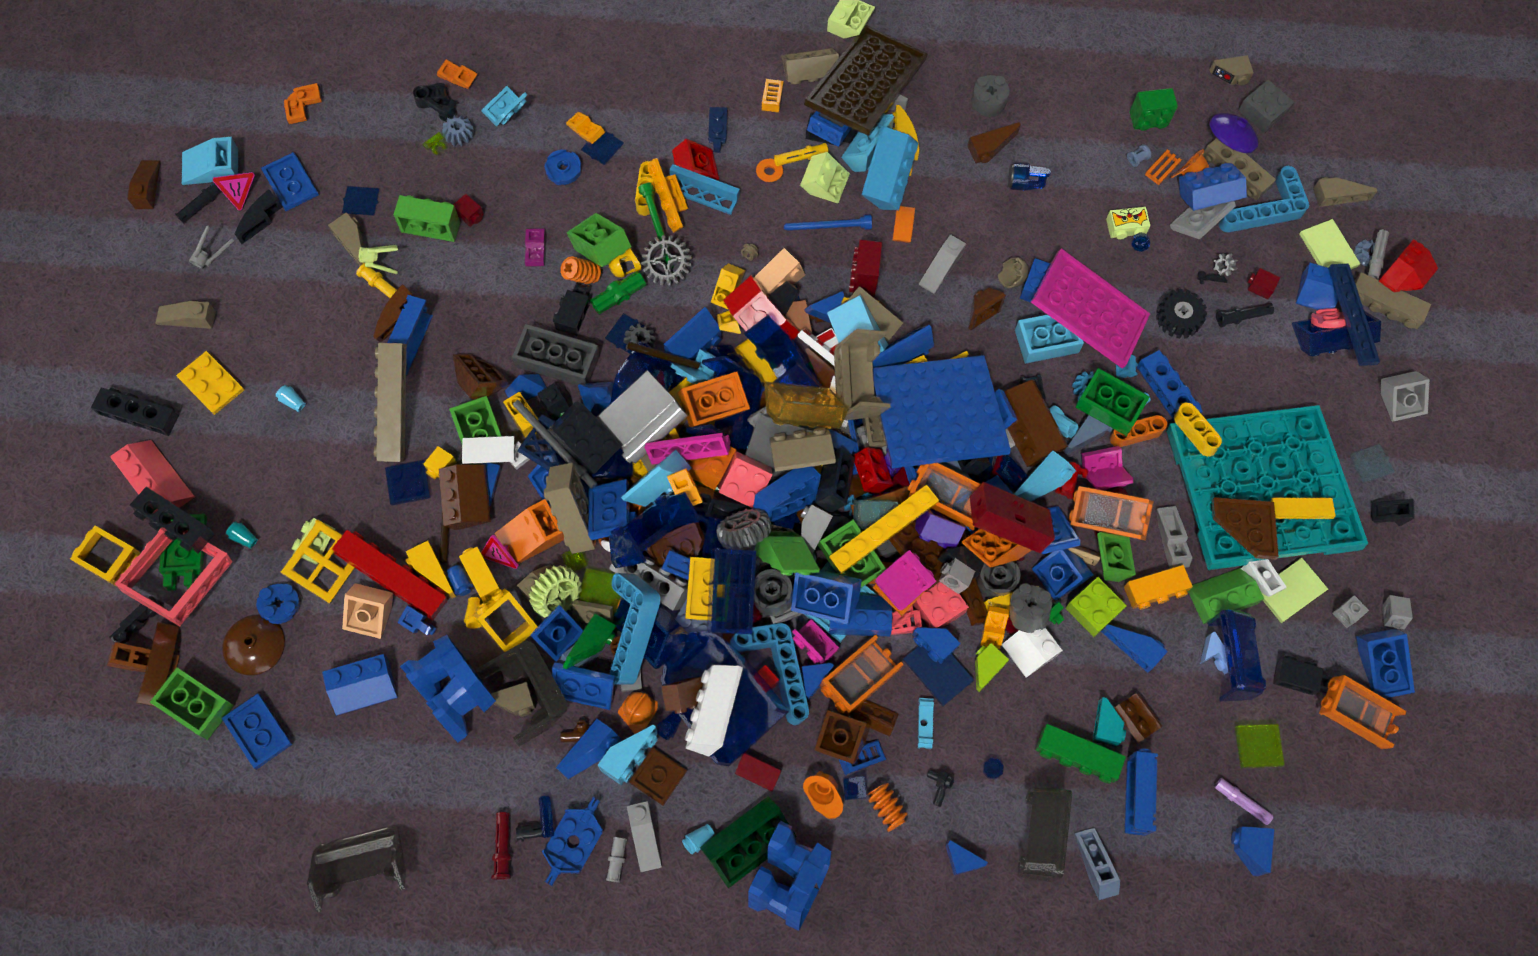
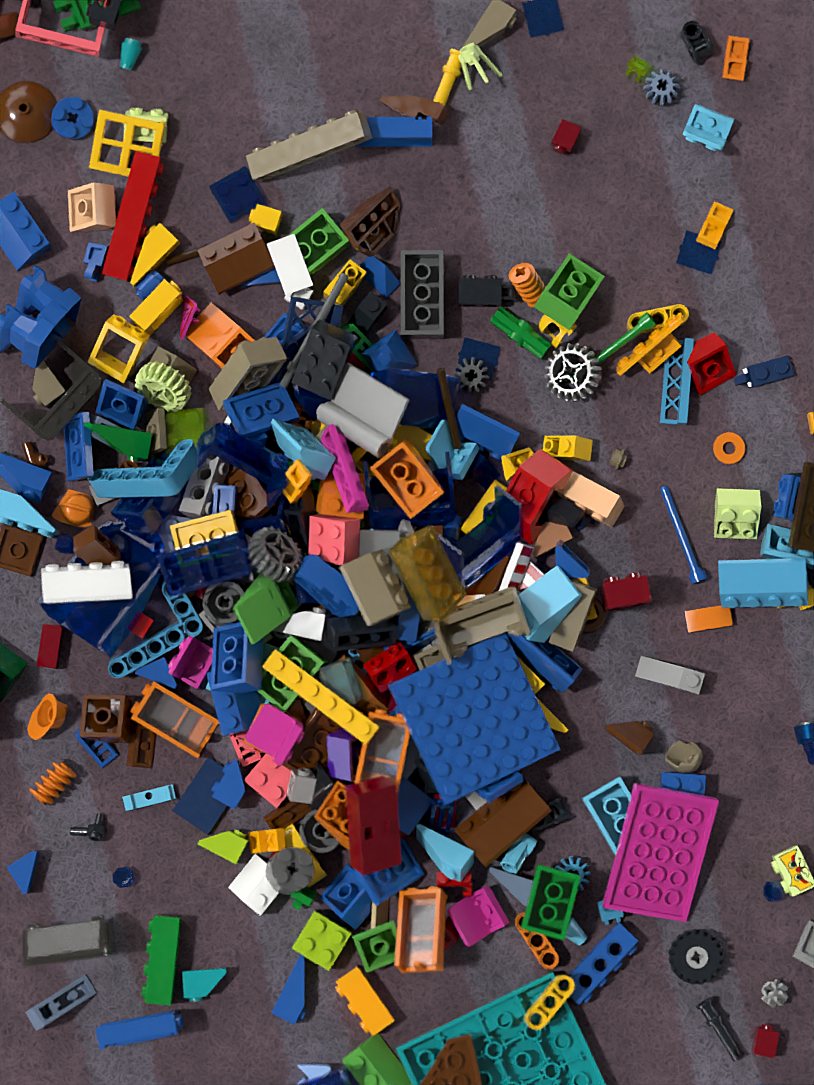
camera: 80 degrees right, 15 degrees up
(290, 398) = (289, 39): medium azure cone -> none
(427, 218) = (538, 98): bright green brick -> none
(443, 110) = (680, 65): black piece -> none
(469, 619) = (122, 310): yellow cone -> none
(534, 247) = (547, 224): magenta slope -> none
(566, 176) = (656, 207): blue plate -> none
(574, 561) = (204, 393): clear neon green tile -> none
(781, 159) = (756, 473): yellow pin -> none
(855, 788) = (63, 745): clear blue slope -> none
(1138, 717) = (217, 1009): reddish brown bracket -> none
(1173, 537) = (427, 1005): light grey slope -> none
(1212, 277) = (755, 971): black piece -> none

